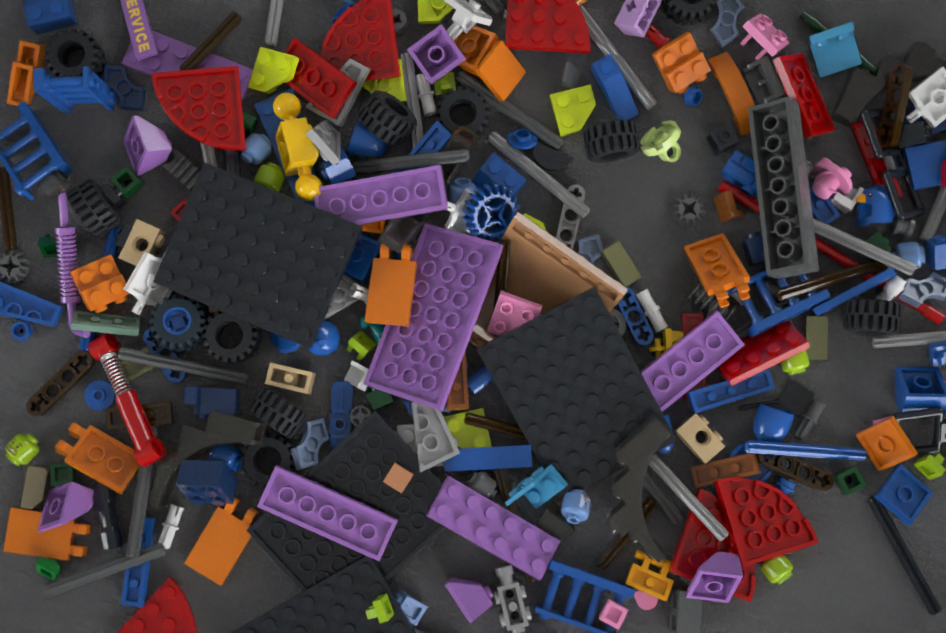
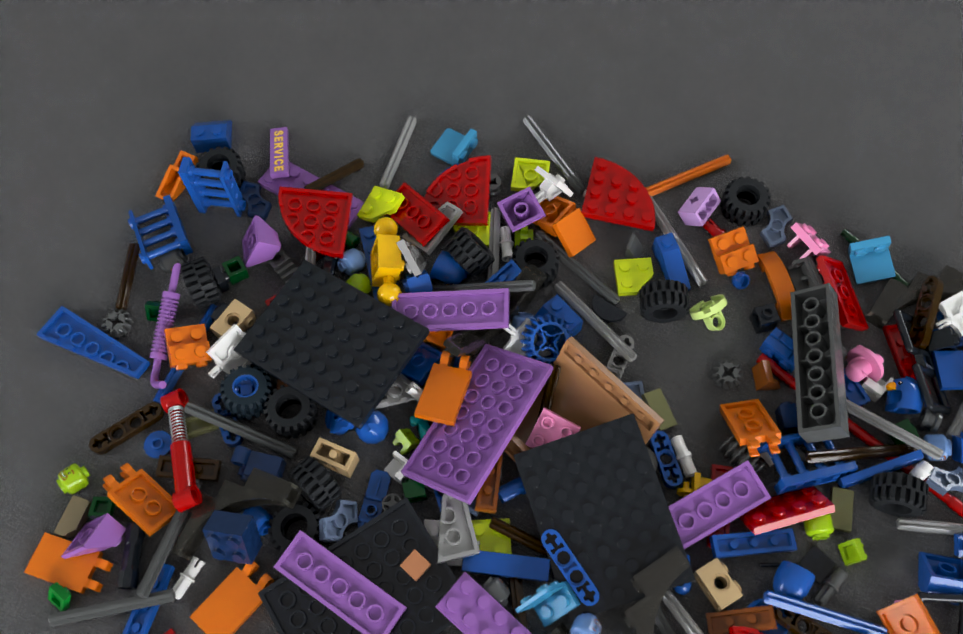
camera: 10 degrees right, 20 degrees down
(16, 328) = (104, 373): blue plate -> none
(105, 323) = (182, 380): sand green tile -> none
(522, 139) = (584, 290): blue piece -> none
(549, 453) = (572, 565): none -> blue beam
(829, 381) = (852, 552): none -> lime tile

